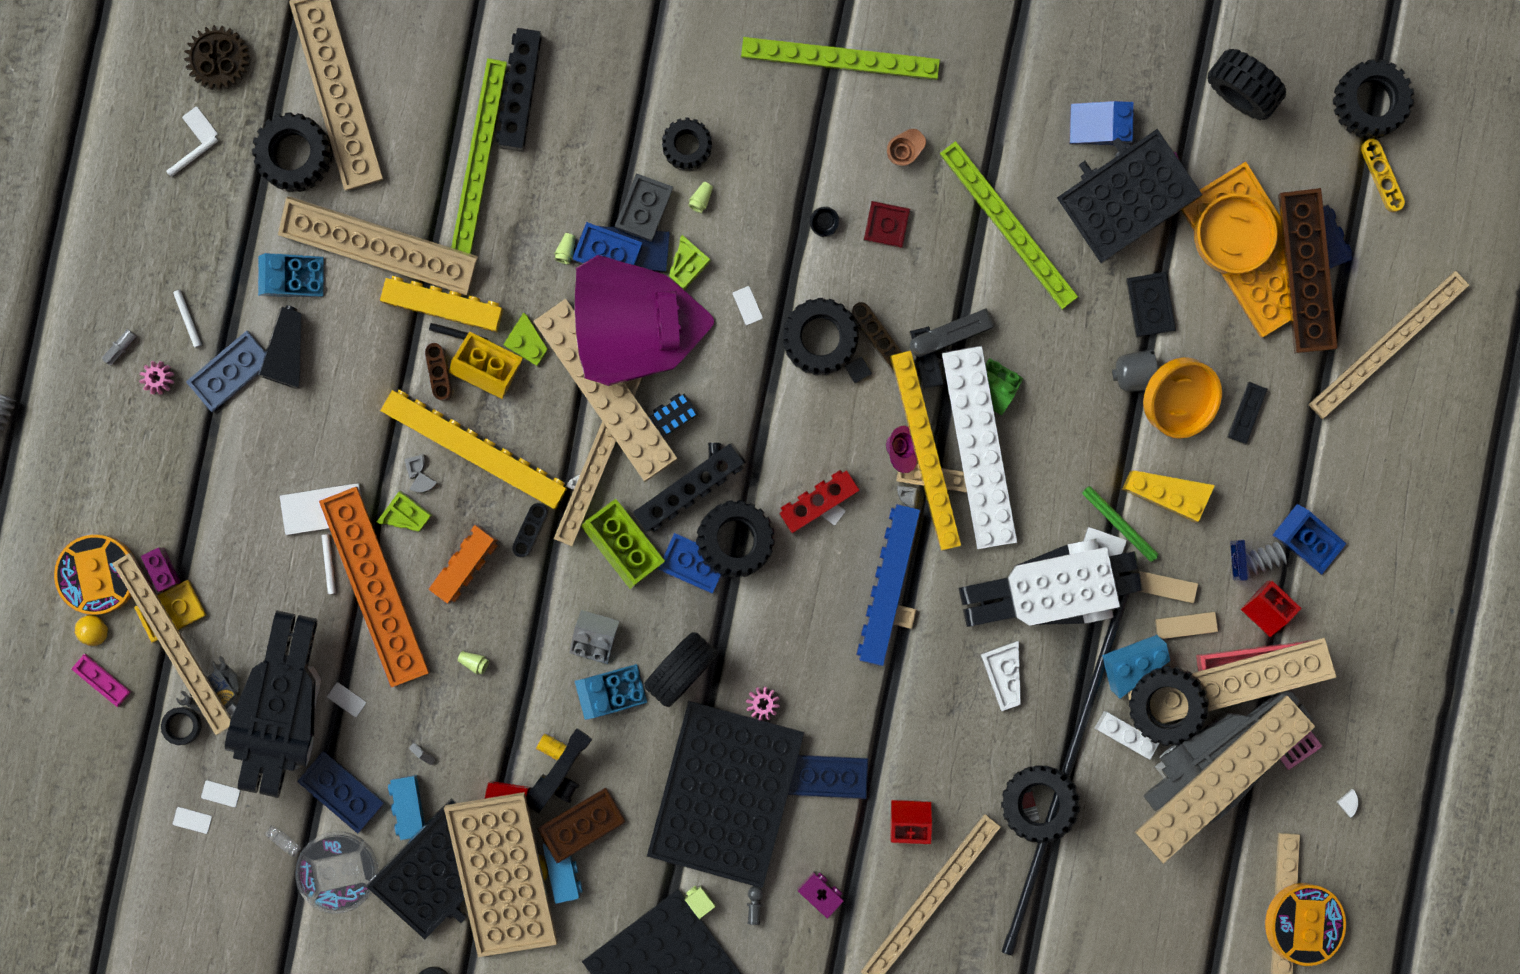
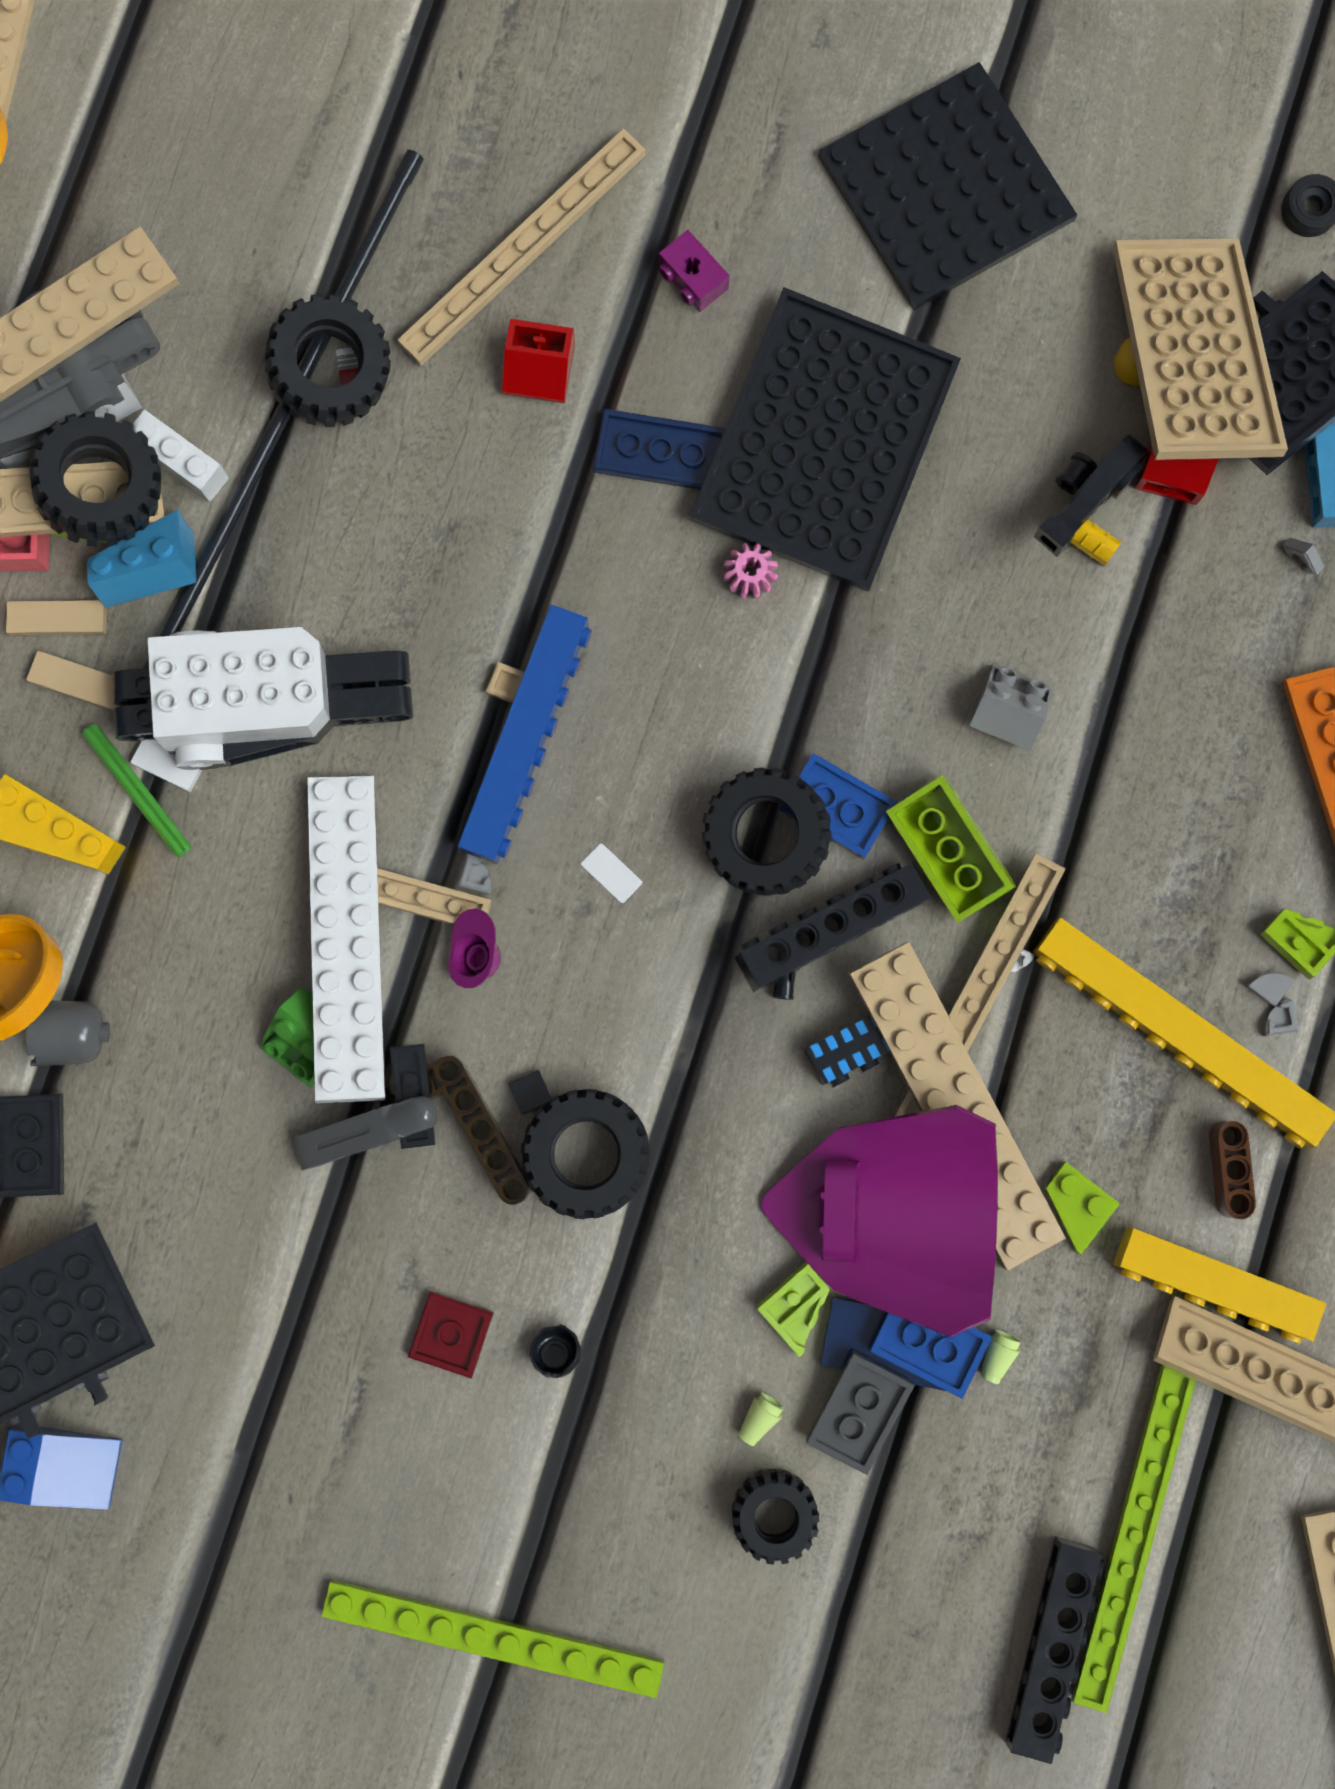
camera: 170 degrees left, 5 degrees down
(449, 331) = (1192, 1231): black bar -> none
(463, 565) = (1214, 846): orange wedge -> none
(474, 662) = (1210, 689): yellowish green cone -> none
(485, 365) = (1153, 1172): yellow slope -> none
(522, 537) = (1114, 881): black beam -> none
(563, 878) = (1096, 352): dark azure brick -> none
(581, 825) = (1061, 413): reddish brown tile -> none
(610, 692) = (993, 617): dark azure slope -> none
(680, 669) = (879, 628): black tyre -> none
(699, 901) = (884, 281): yellowish green brick -> none
(747, 305) = (702, 1223): white sticker -> none
(755, 895) = (798, 265): dark grey pin -> none
(847, 489) = (663, 851): red brick -> none
(906, 147) = (399, 1465): nougat piece -> none
(925, 450) = (435, 943): yellow brick -> none
(1003, 673) = (359, 574): white wing -> none
(1008, 225) = (246, 1310): lime plate -> none

